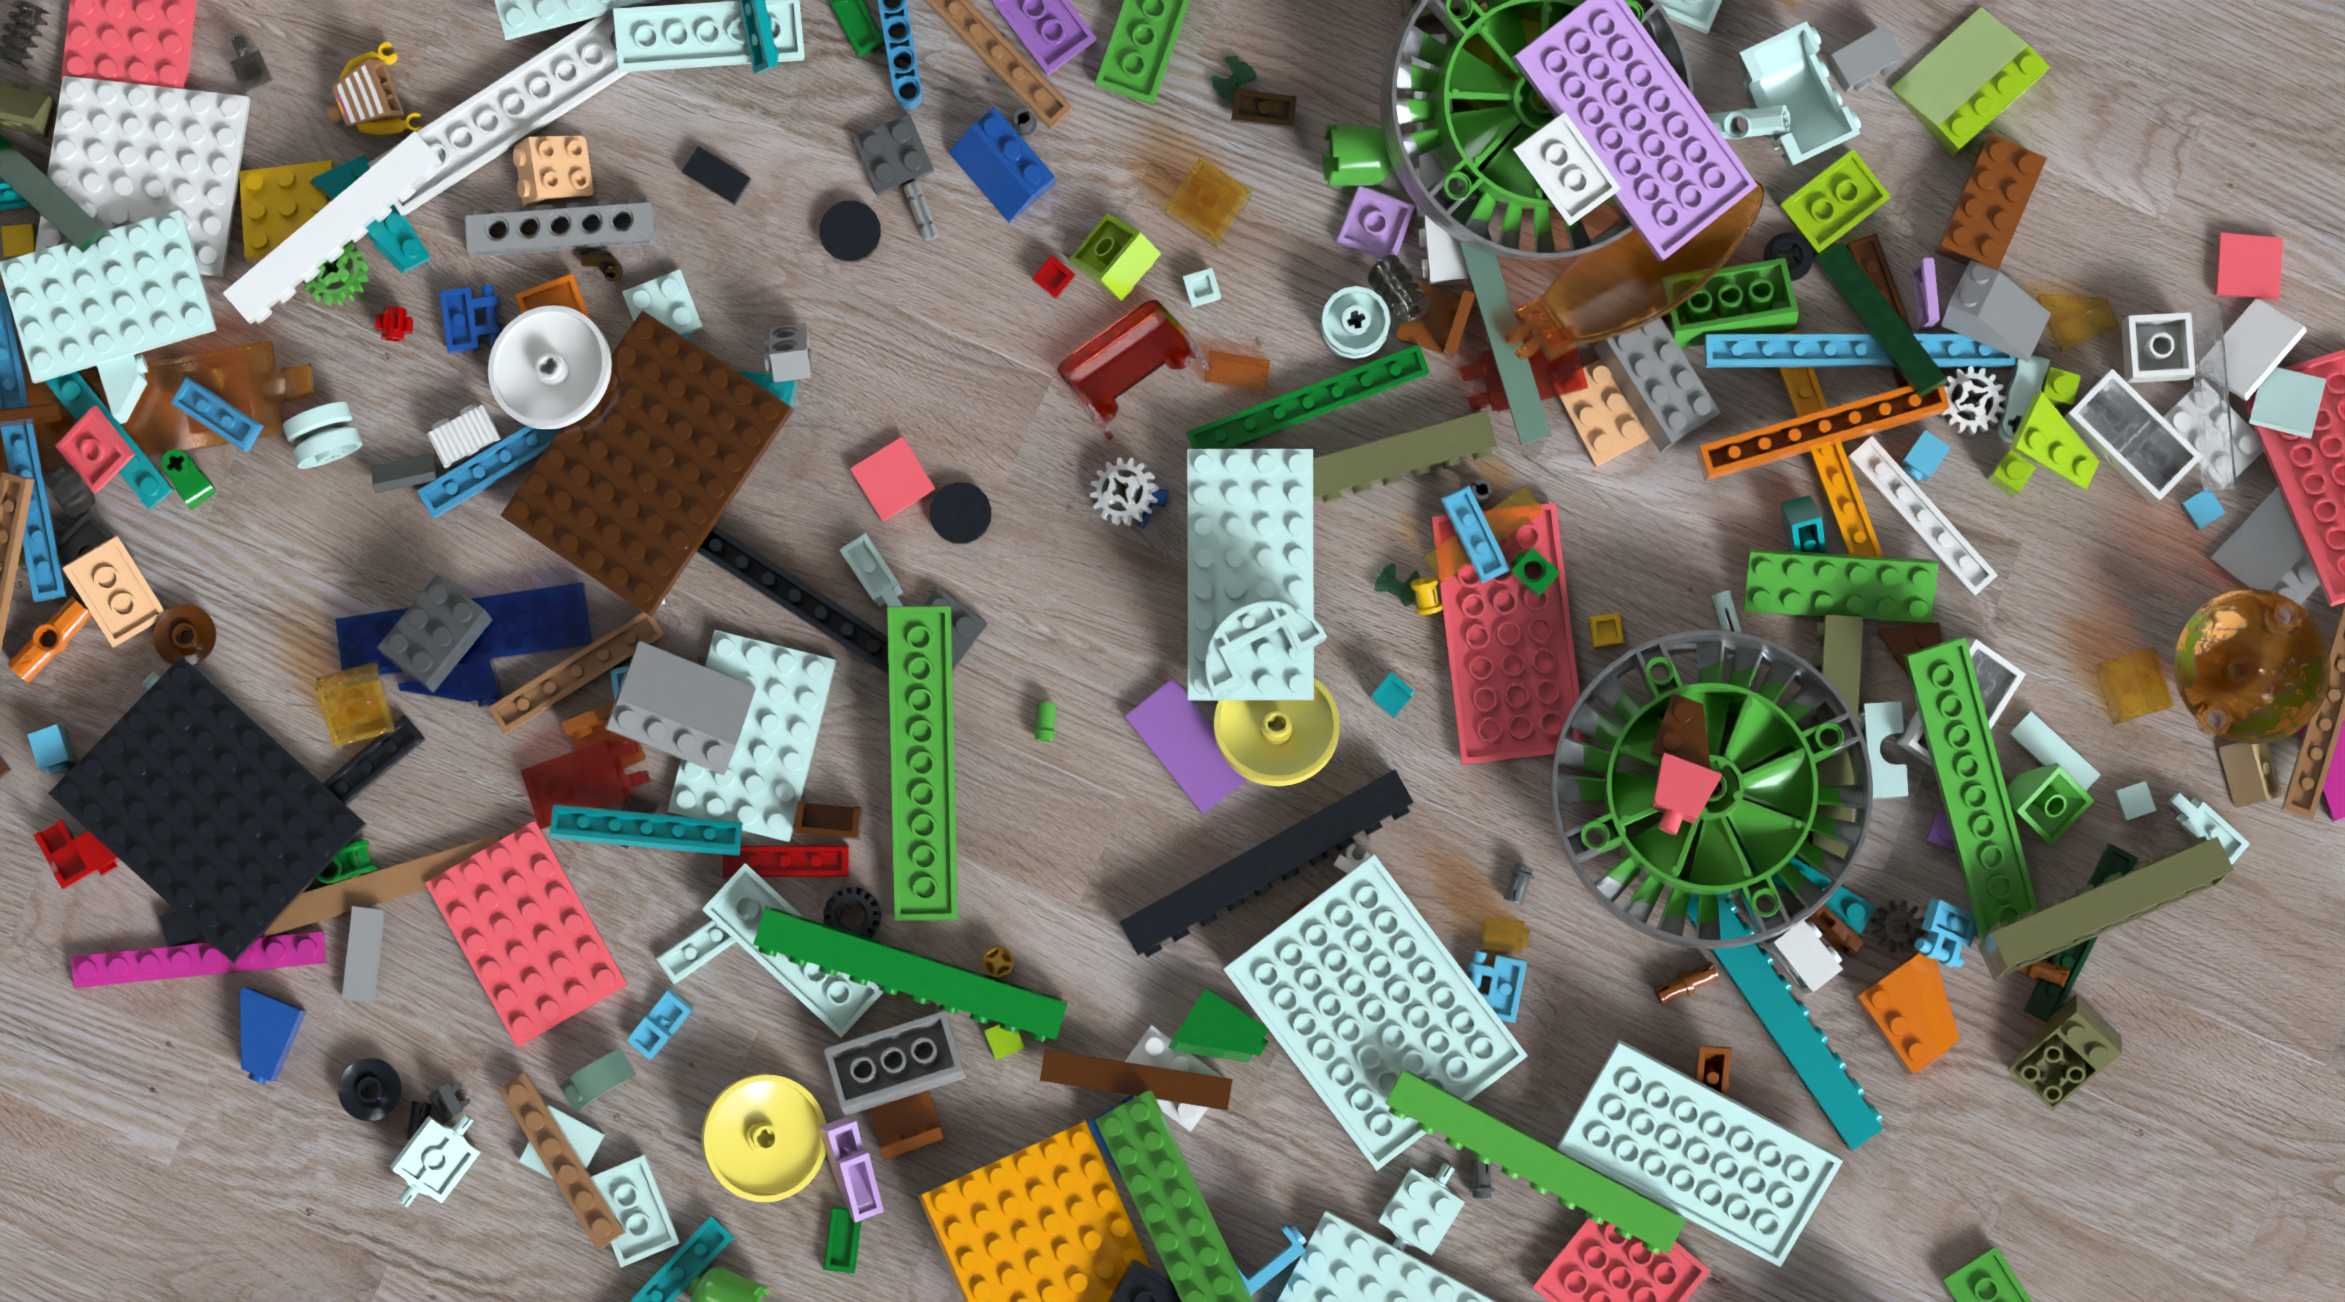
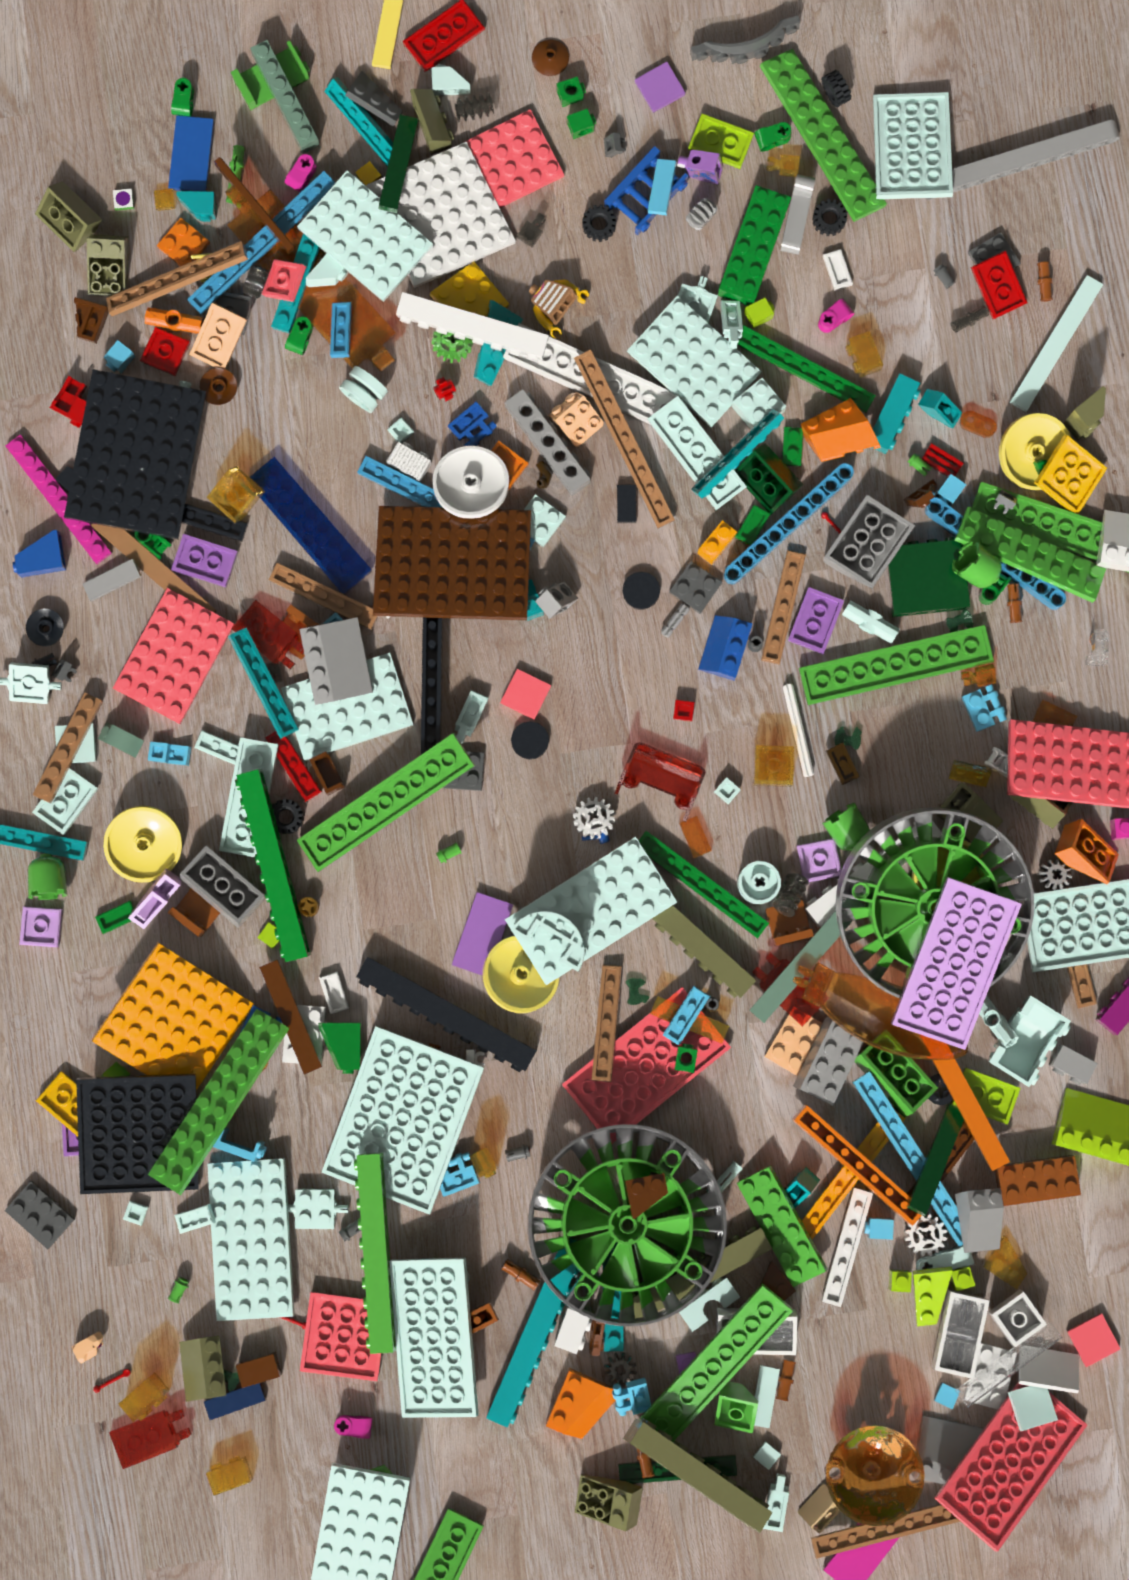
camera: 60 degrees right, 0 degrees up
(85, 680) = (165, 351): none -> red tile
(404, 473) = (371, 443): dark grey tile -> none
(412, 421) = (400, 430): none -> light aqua tile
(419, 807) = (204, 560): none -> medium lavender plate
(435, 633) = (296, 511): dark grey brick -> none
(467, 683) = (282, 543): clear blue slope -> none
(624, 120) = (624, 439): none -> medium nougat plate
(850, 85) = (717, 542): none -> light orange brick
(1115, 256) = (714, 735): lime slope -> none
(1139, 1000) = (334, 992): none -> white tile
(1179, 139) = (798, 730): none -> white axle
(1392, 694) = (575, 1024): teal panel -> none
(1417, 650) = (606, 1023): none -> medium nougat tile
(1426, 596) = (638, 1010): yellow bush -> none
(1567, 168) = (907, 943): white plate -> none
(1606, 630) = (680, 1116): yellow tile -> none
(1682, 791) = (613, 1210): coral torso -> none
(1847, 233) = (972, 1113): none -> orange tile
(1925, 294) = (966, 1175): lavender tile -> none
(2050, 712) = (785, 1380): none -> dark orange pin
(2134, 685) = (828, 1417): clear yellow slope -> none

